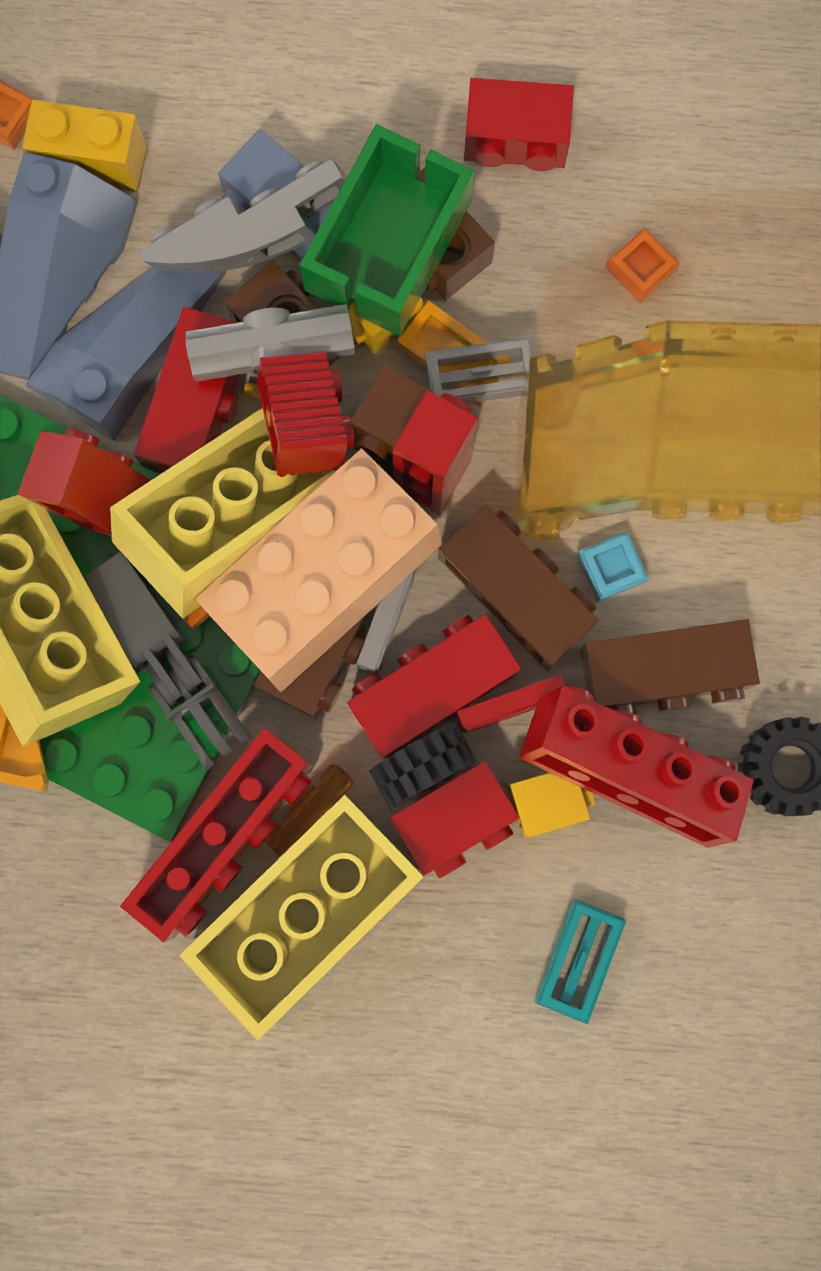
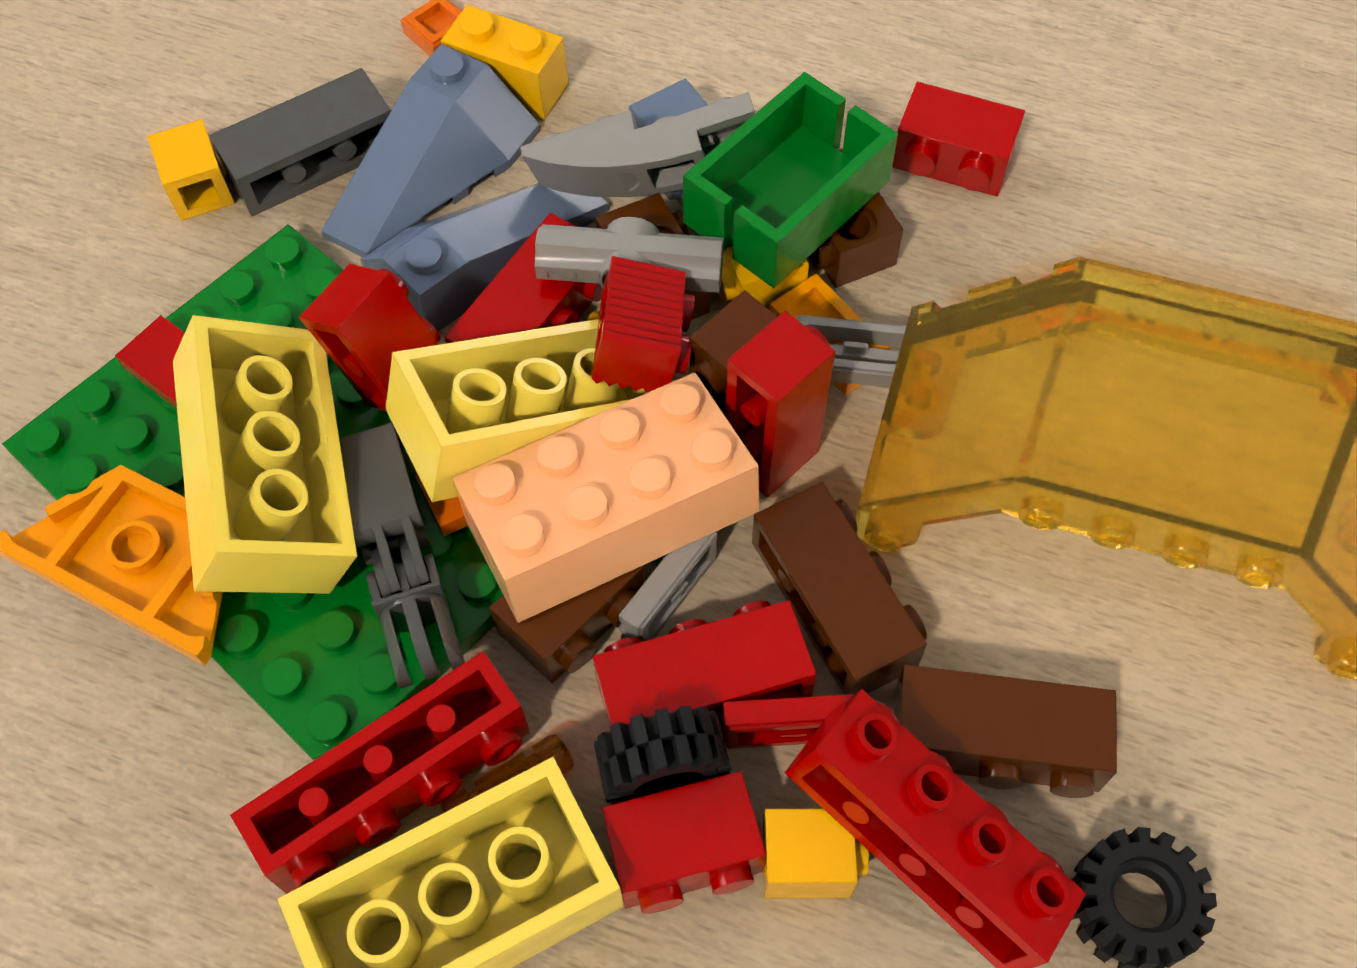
camera: 15 degrees right, 20 degrees down
(612, 566) = (958, 602): medium azure tile -> none

